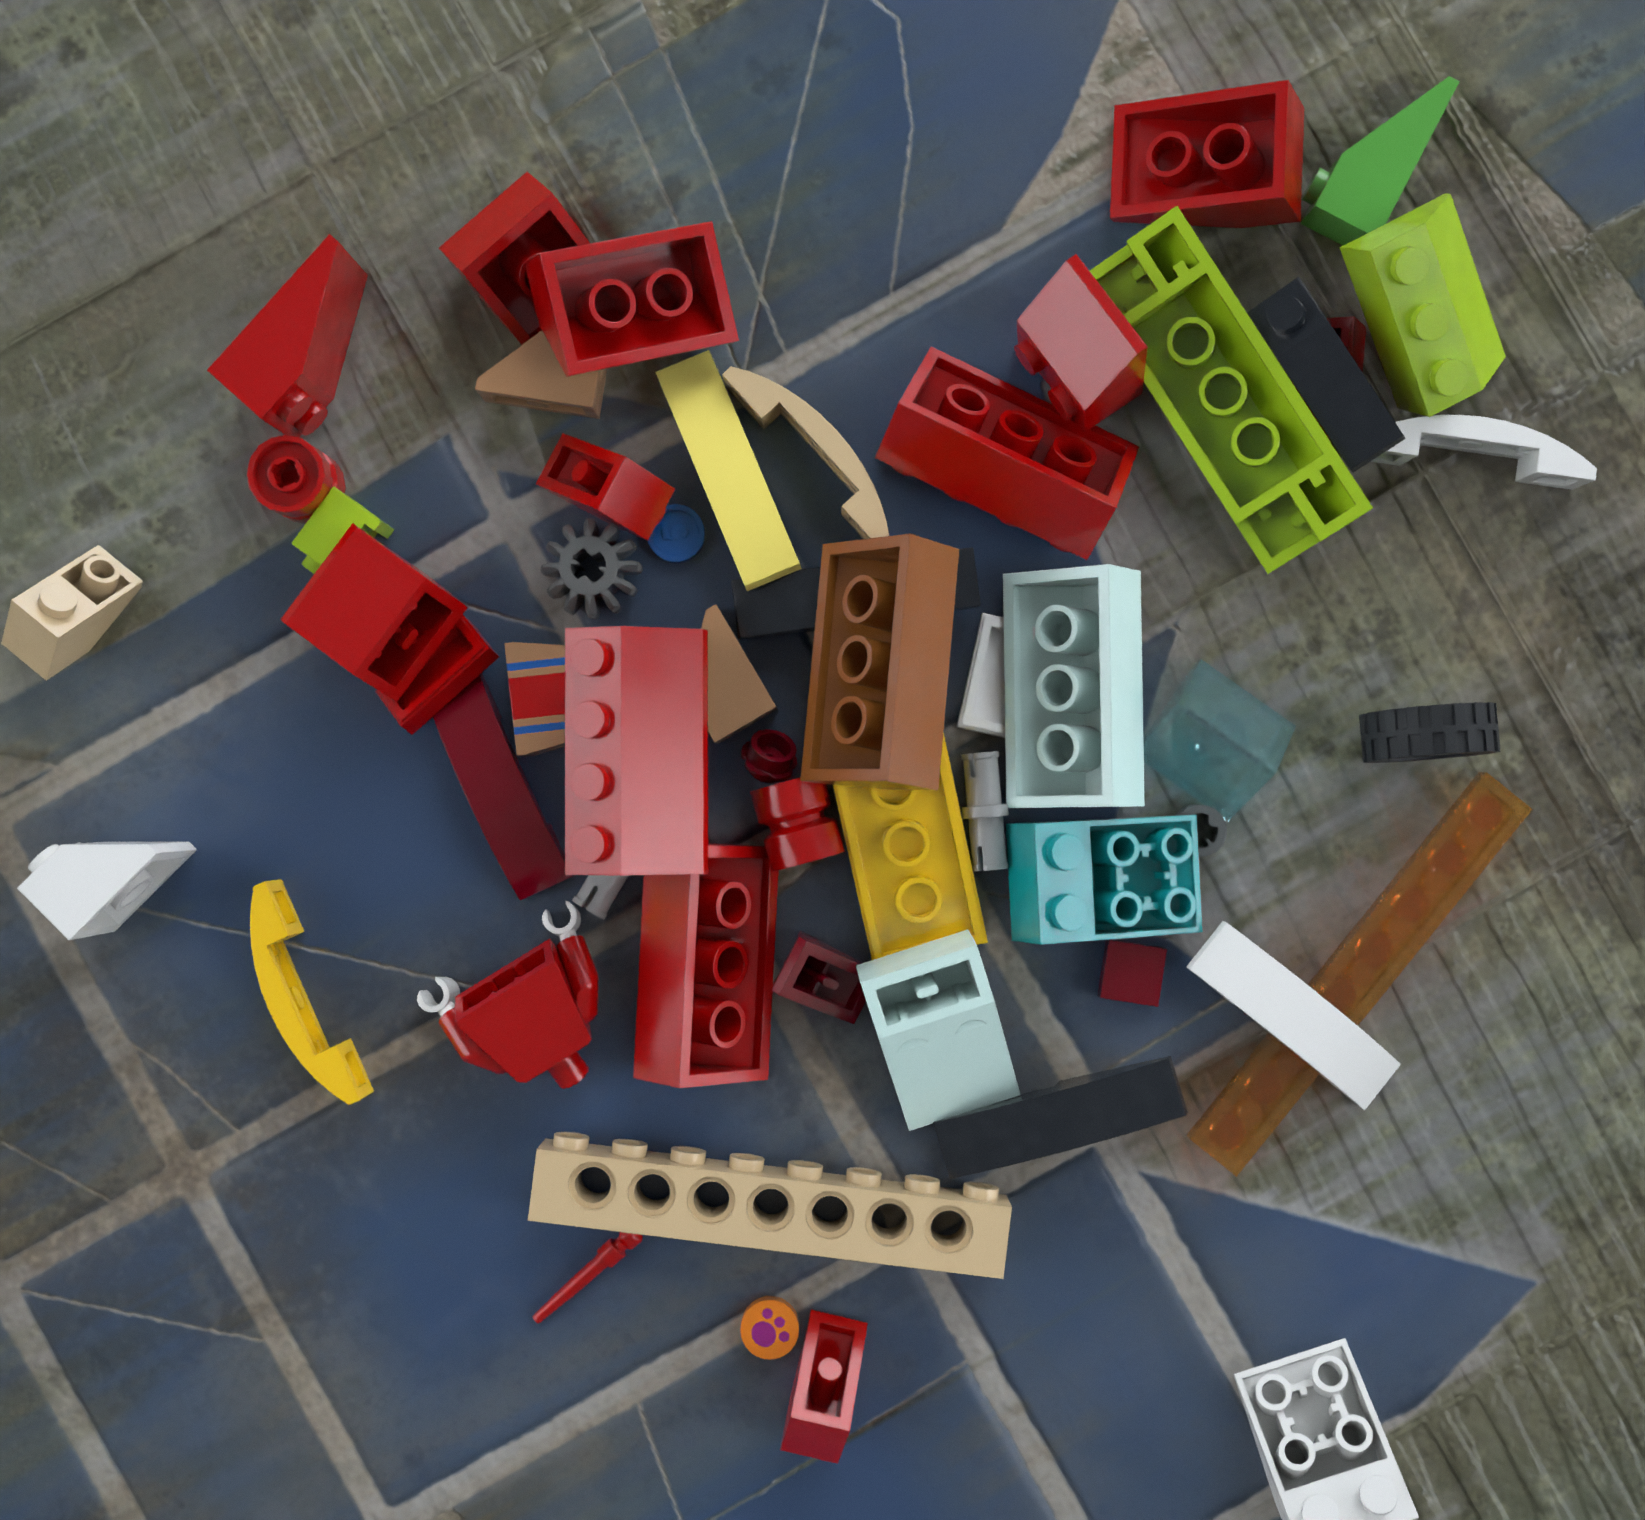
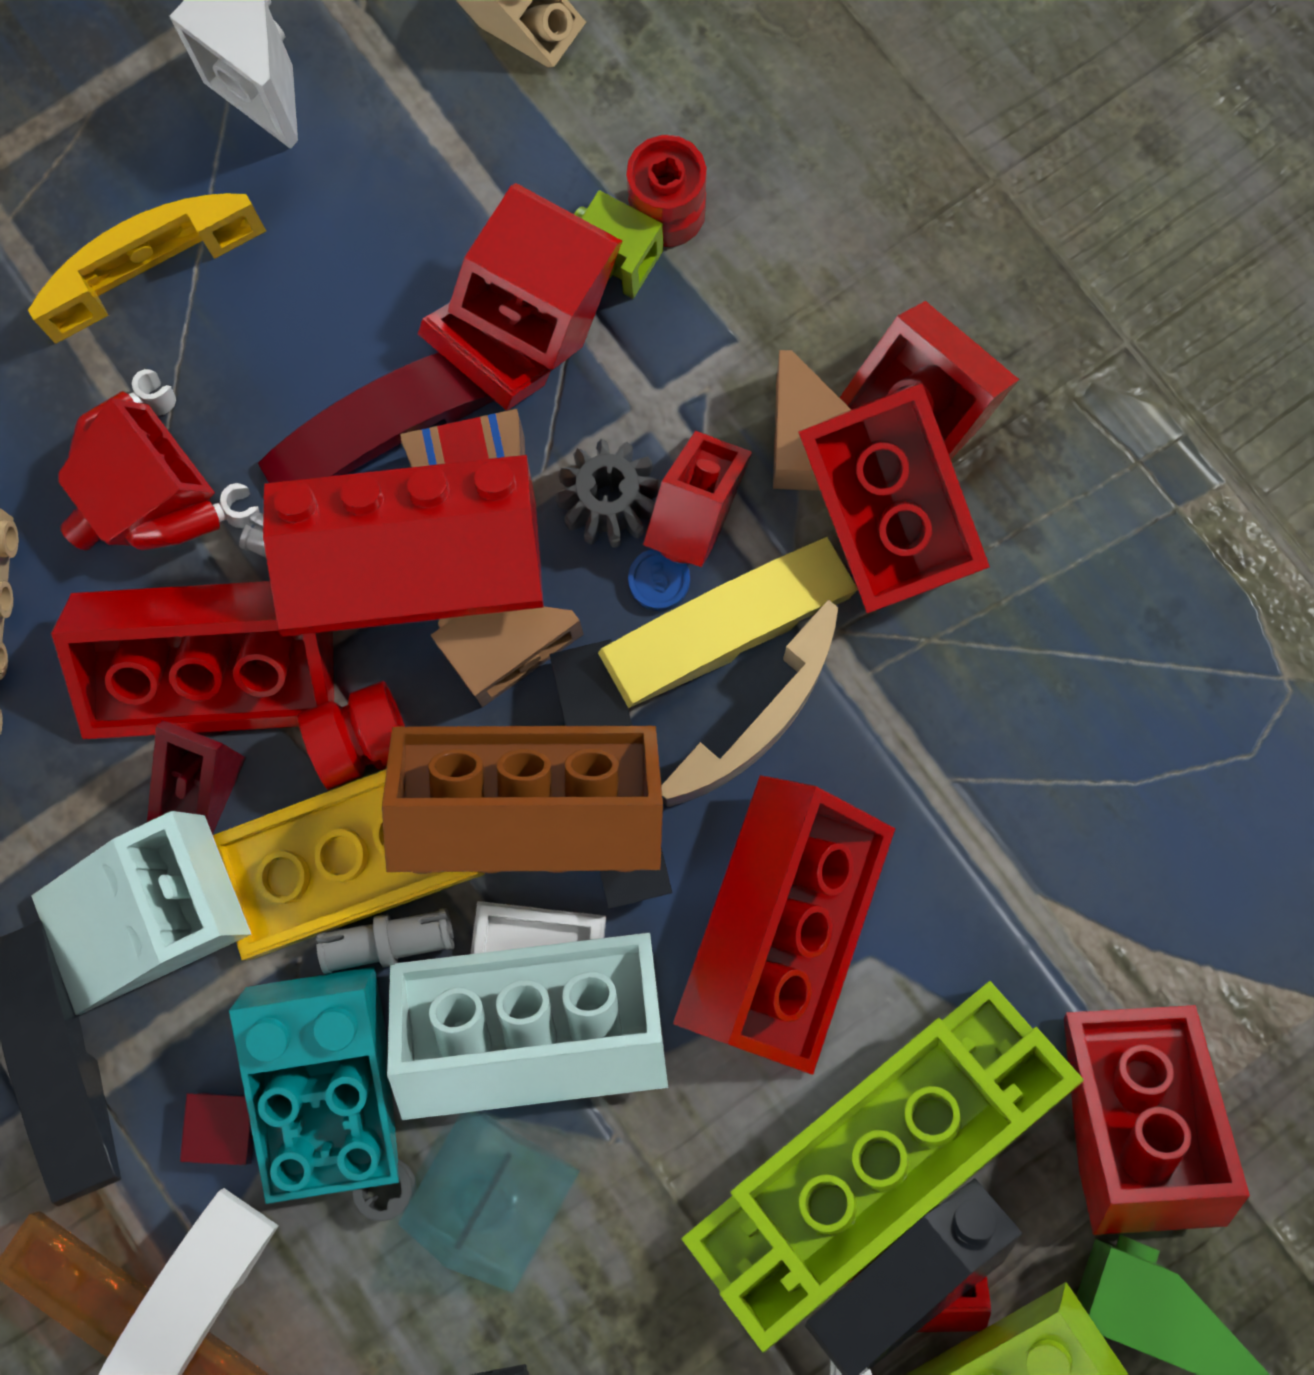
camera: 80 degrees right, 10 degrees down
(297, 344) = (804, 173): red slope -> none
(770, 756) = (438, 699): dark red plate -> none
(1081, 347) = (907, 988): slope -> none

